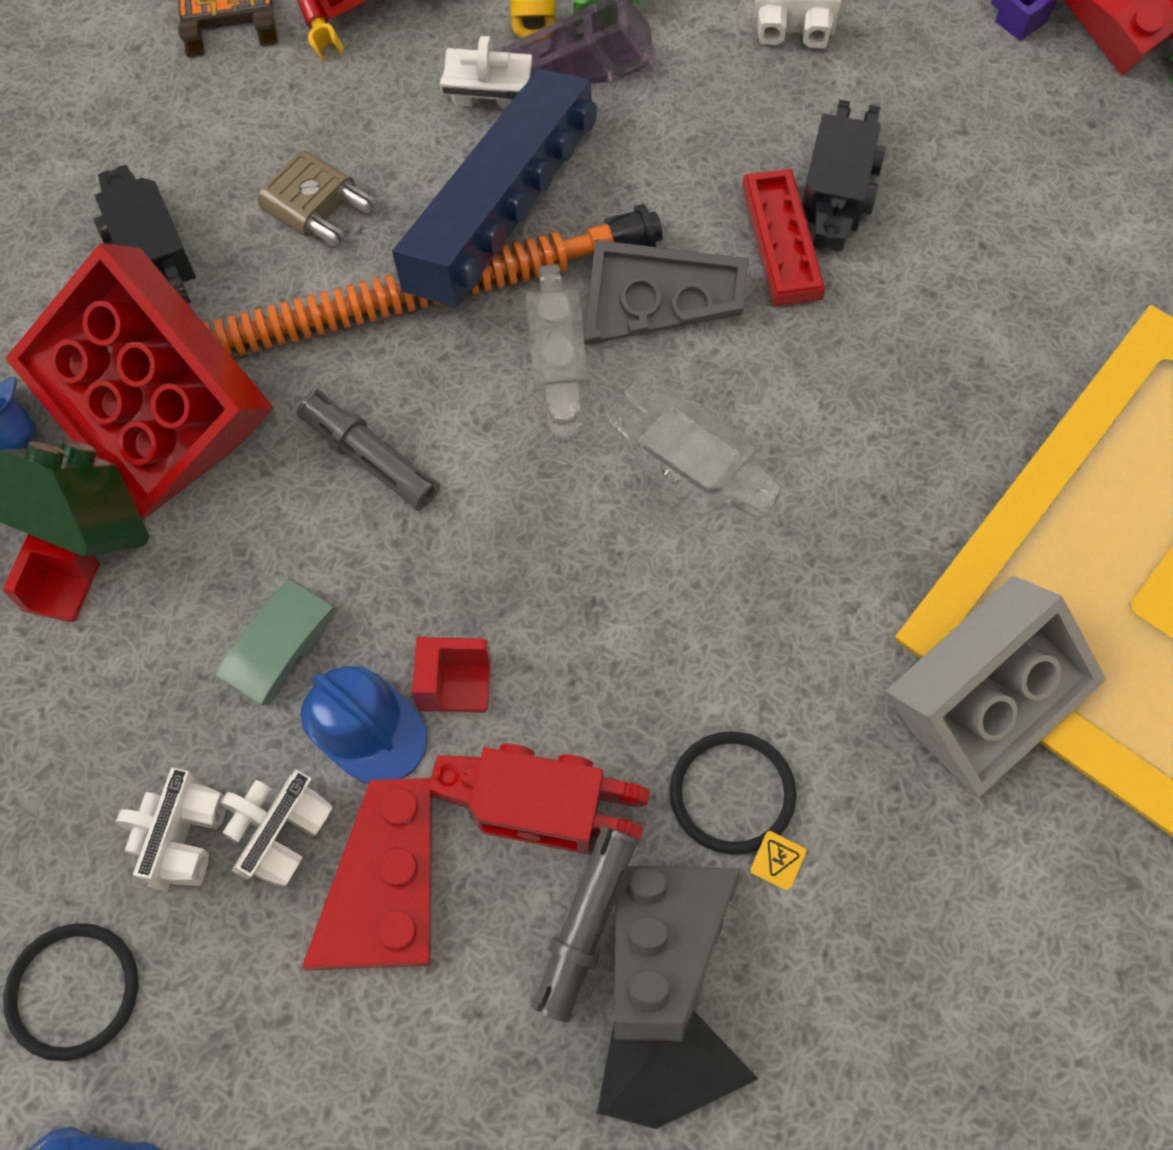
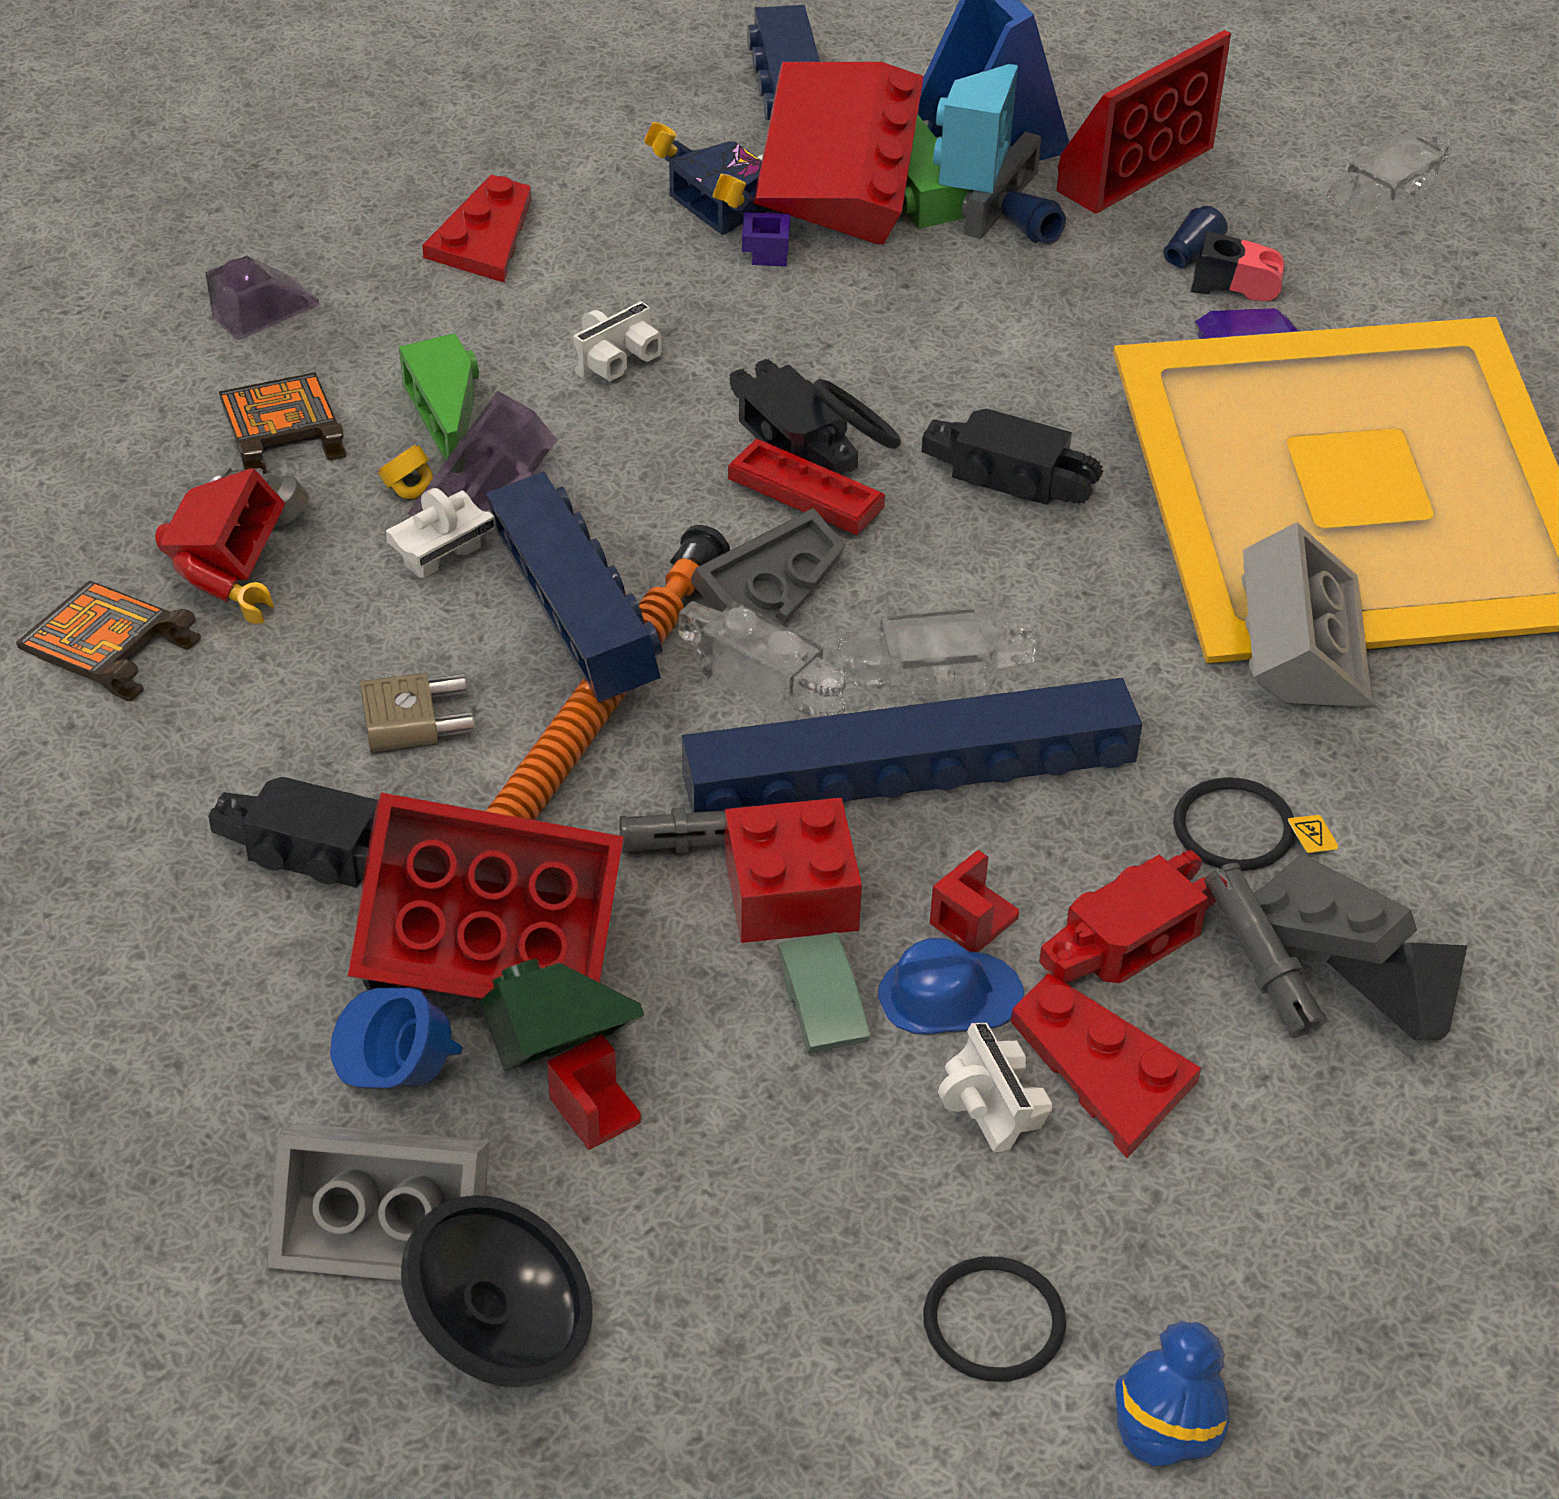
camera: 50 degrees left, 20 degrees down
(162, 828) = (920, 1156): white hips -> none
(364, 531) = (792, 870): none -> red brick
(576, 518) = (913, 747): none -> dark blue brick
(860, 215) = (869, 422): none -> black tyre
(967, 336) = (1013, 457): none -> black hinge

